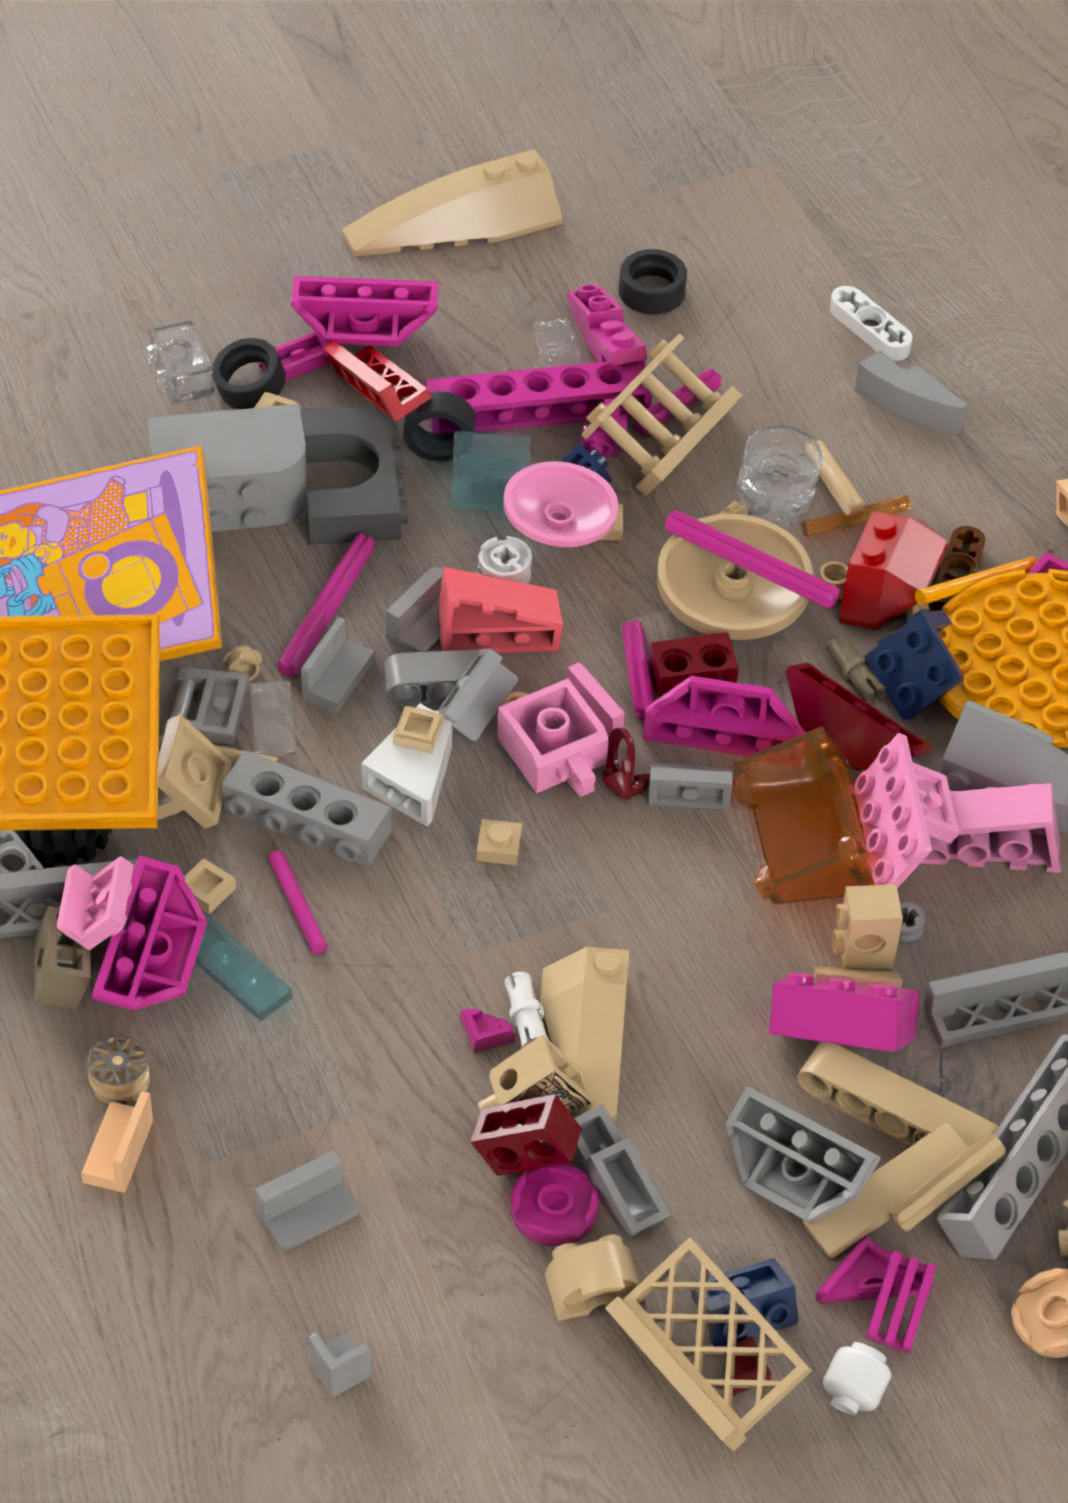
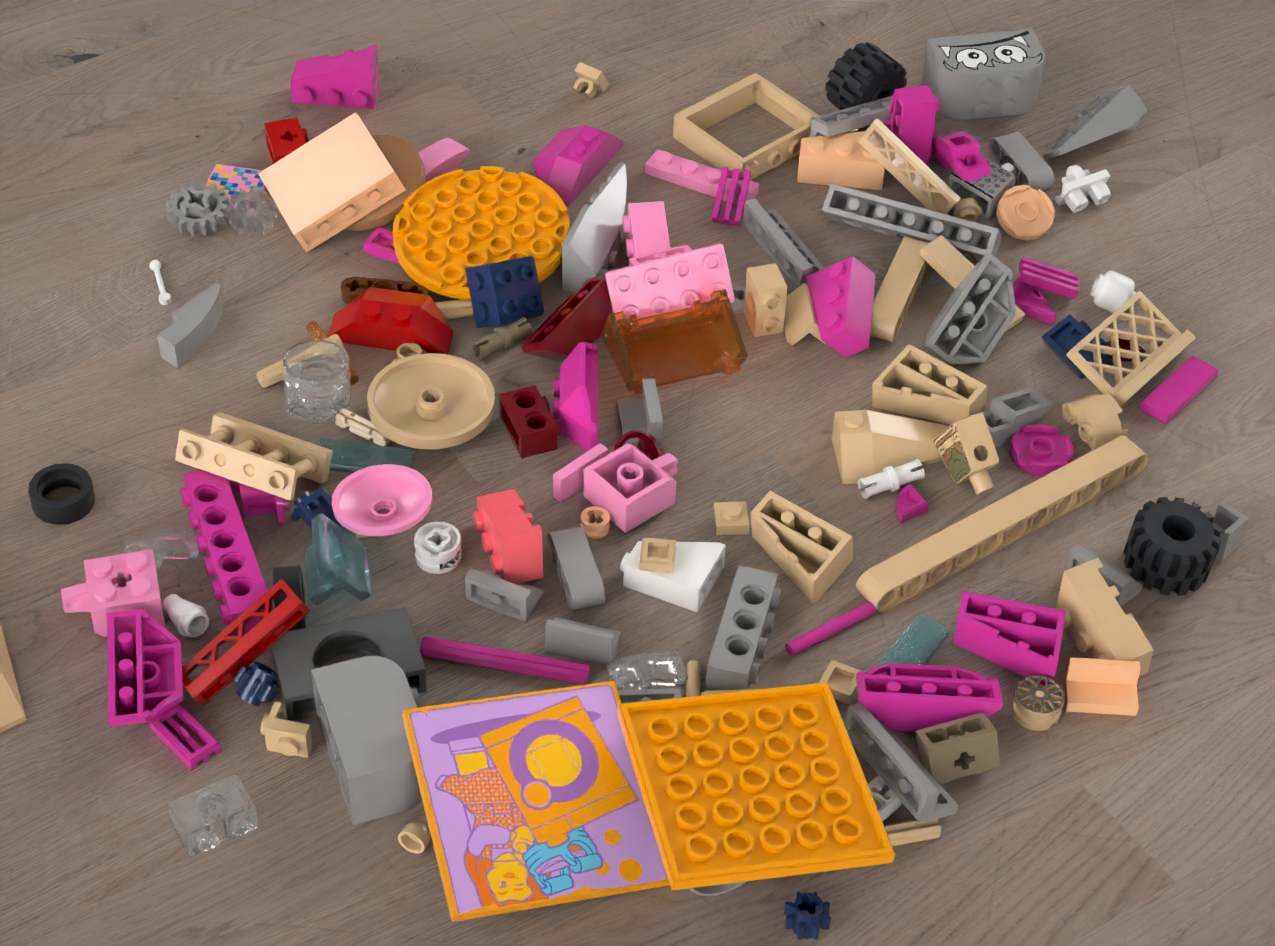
camera: 100 degrees left, 5 degrees down
(95, 904) = (921, 706): bright pink bracket -> none
(206, 1158) = (1098, 620): none -> tan wedge
(215, 1060) = (1011, 633): none -> dark pink wedge
(242, 353) = (223, 729): black tyre -> none
(314, 1272) = (1172, 546): none -> black wheel
(345, 393) = (256, 683): none -> dark blue gear
(420, 882) = (801, 544): none -> tan wedge
(426, 1126) = (1001, 523): none -> tan beam
(452, 361) = (187, 617): none -> white cone
(478, 694) = (604, 529): light grey panel -> none
(489, 313) = (116, 585): none -> bright pink hinge
(526, 1135) = (1014, 448): dark red brick -> none
(604, 327) = (134, 515): dark pink slope -> none
(638, 667) = (531, 457): dark pink axle -> none
(644, 1413) = (1178, 389): none -> dark pink tile
(671, 1081) = (927, 389): none -> tan wedge
(675, 496) = (355, 456): none -> clear light blue tile
(752, 559) = (422, 382): dark pink axle -> none
(853, 307) = (83, 371): white beam -> none
(948, 1182) = (943, 228): tan axle -> none
(957, 585) = (404, 275): light orange bar -> none
(978, 383) = (164, 298): none -> white hinge

